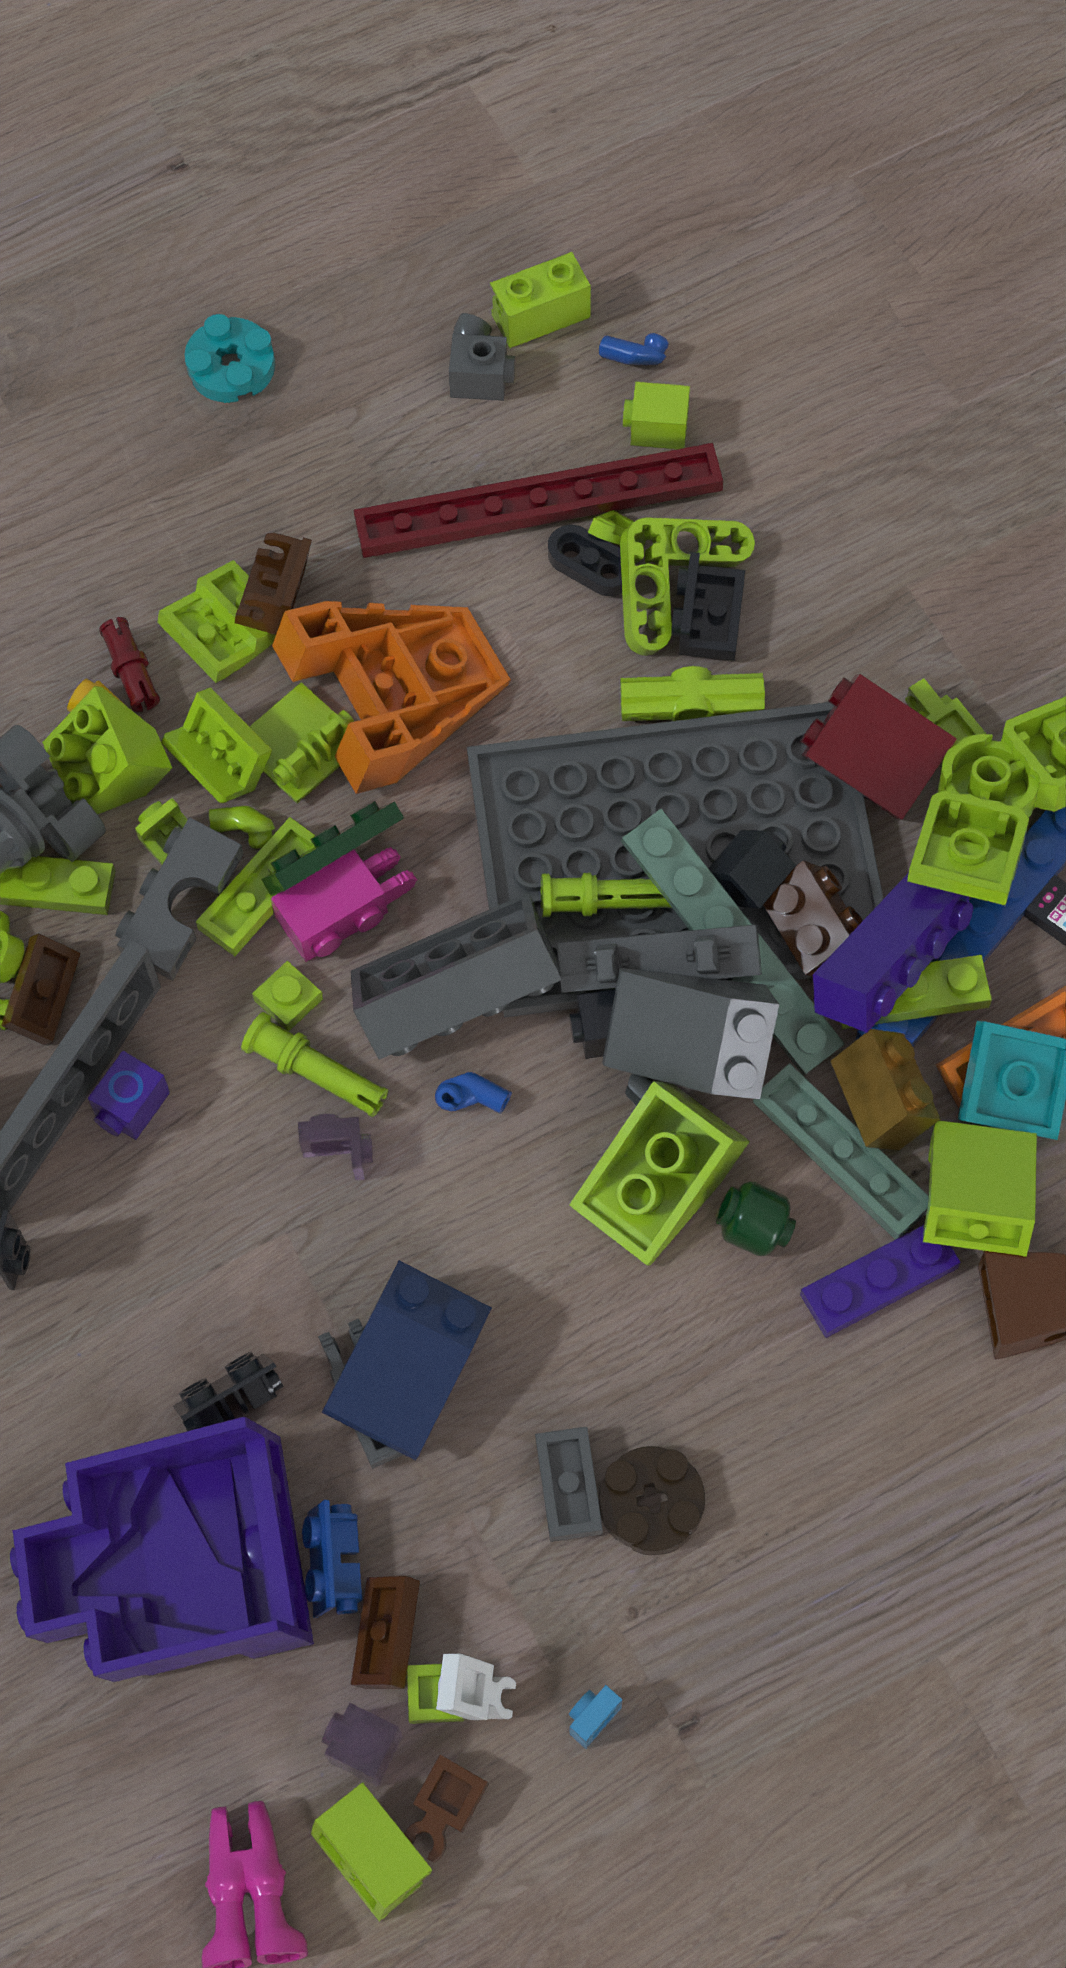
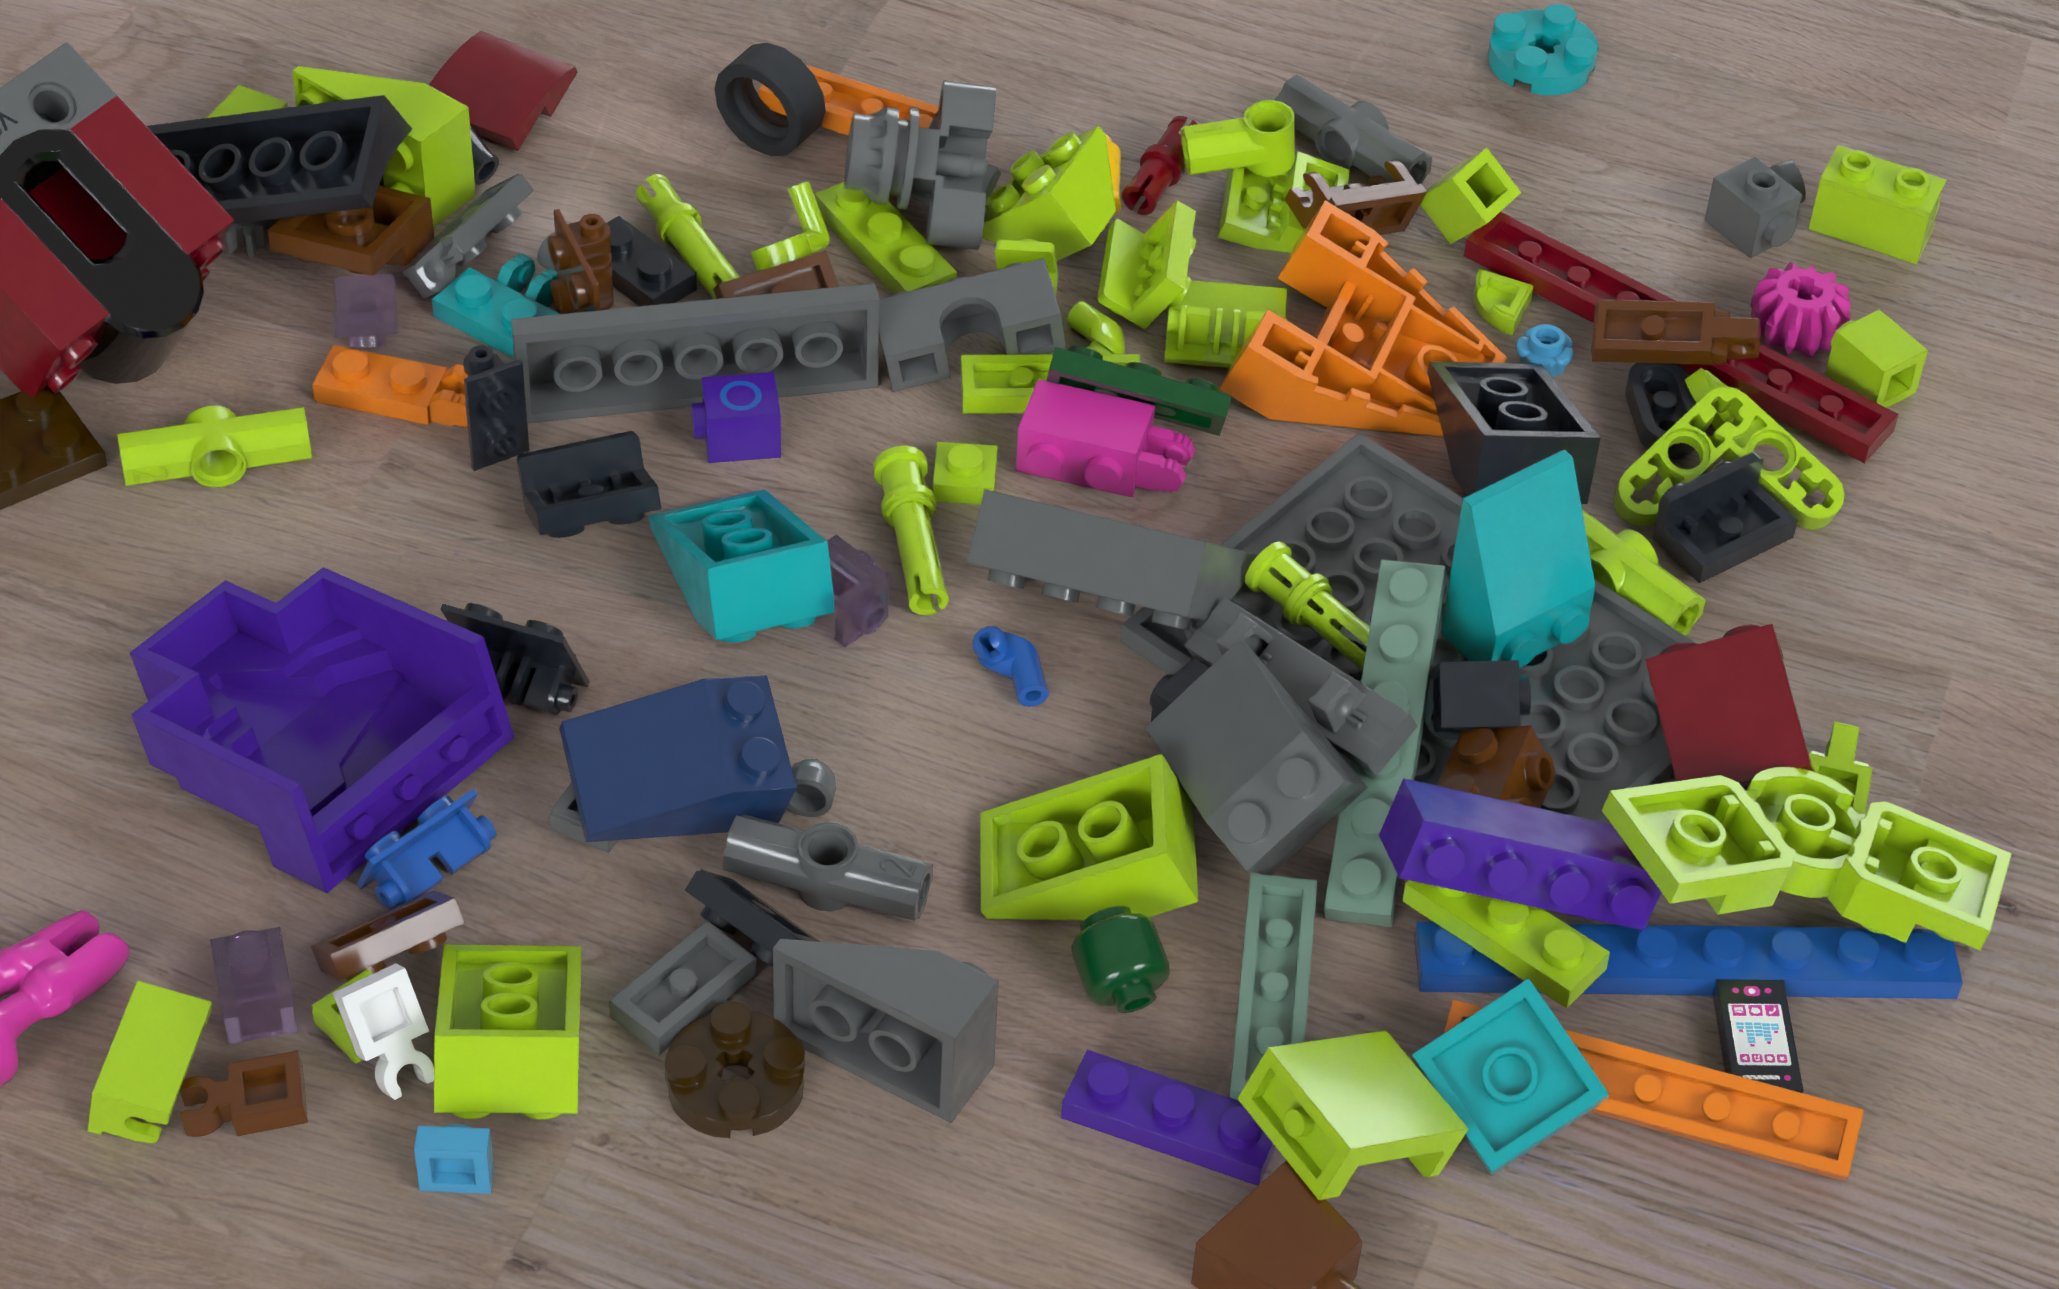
camera: 45 degrees right, 20 degrees down
(109, 1236) = (586, 484): none -> black bracket
(167, 612) = (1257, 141): none -> lime piece
(205, 534) = (1350, 134): none -> dark grey piece
(255, 1188) = (746, 564): none -> teal slope
(333, 517) = (1469, 196): none -> lime brick
(418, 569) = (1501, 300): none -> lime tile
(474, 1284) = (814, 788): none -> dark grey hinge
(485, 592) = (1546, 346): none -> dark azure plate
(518, 1609) = (508, 1031): none -> lime slope
(543, 661) = (1506, 420): none -> black slope
(551, 511) = (1671, 333): none -> reddish brown hinge
(575, 1311) = (827, 866): none -> dark grey piece
(575, 1402) = (734, 908): none -> black hinge
(583, 417) = (1800, 308): none -> dark pink gear
(633, 353) = (1919, 310): blue arm -> none
(699, 770) = (1520, 566): none -> teal slope
(722, 1381) = (891, 1017): none -> dark grey slope
(885, 1089) = (1372, 967): pearl gold brick -> none

